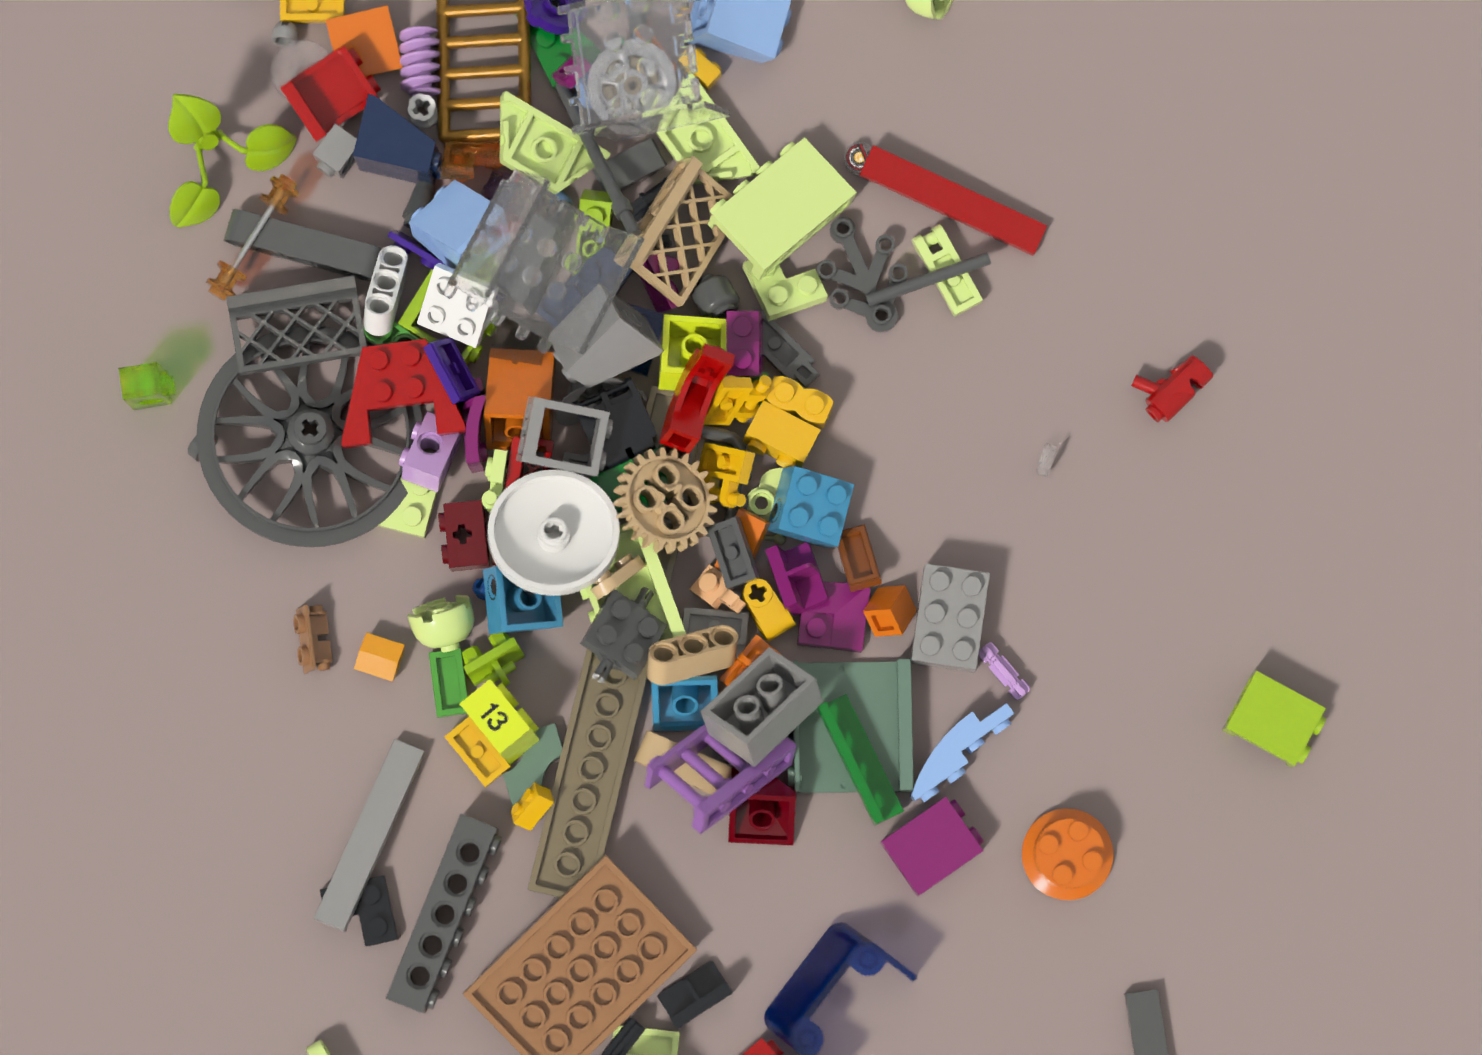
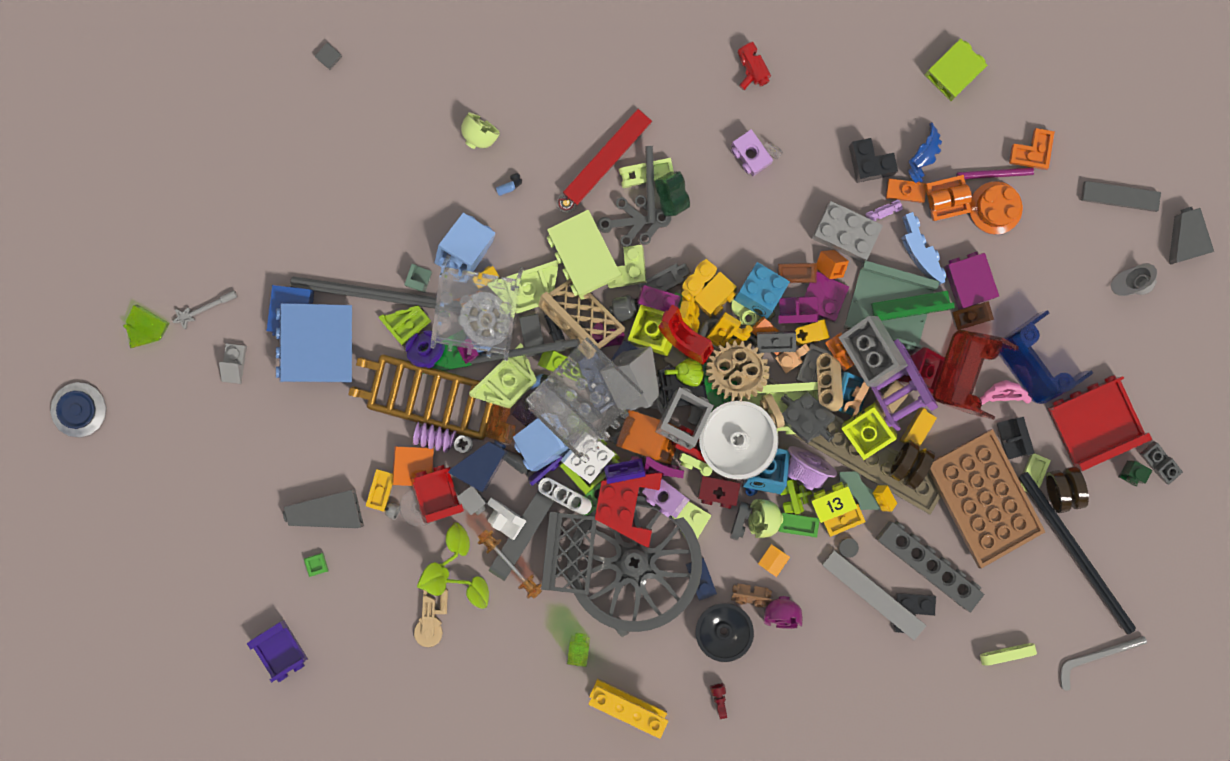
camera: 75 degrees left, 5 degrees up
(75, 489) = (628, 708): none -> yellow fence
(111, 146) = (429, 630): none -> tan piece
(143, 630) = (718, 691): none -> dark red piece
(224, 593) = (734, 642): none -> black dish
(298, 696) = (783, 613): none -> magenta cylinder
(306, 562) = (706, 586): none -> dark blue plate
(322, 210) = (505, 519): none -> white panel
(413, 584) = (742, 513): none -> dark grey plate
(435, 774) = (848, 547): none -> dark grey tile
(544, 665) = (809, 468): none -> lavender piece
(597, 826) = (912, 464): none -> dark brown wheel
(629, 740) = (869, 431): none -> neon yellow brick
(639, 424) = (688, 372): none -> lime piece
(662, 831) = (918, 426): none -> yellow panel
(686, 711) = (859, 394): none -> light nougat plate
(766, 955) = (1006, 391): none -> bright pink piece
(780, 876) = (963, 367): none -> clear red windscreen
(858, 62) = (515, 182): none -> arm
(874, 864) = (973, 315): none -> reddish brown slope
(924, 318) = (672, 193): none -> clear green brick
(1024, 445) = (750, 142): none -> lavender brick
(1049, 697) = (906, 190): none -> orange plate
(1057, 767) = (948, 197): none -> orange plate
(1068, 624) = (869, 166): none -> black brick
(1118, 709) = (925, 154): none -> blue plant
(1124, 836) = (996, 173): none -> magenta bar
(1176, 897) = (1037, 154): none -> orange plate

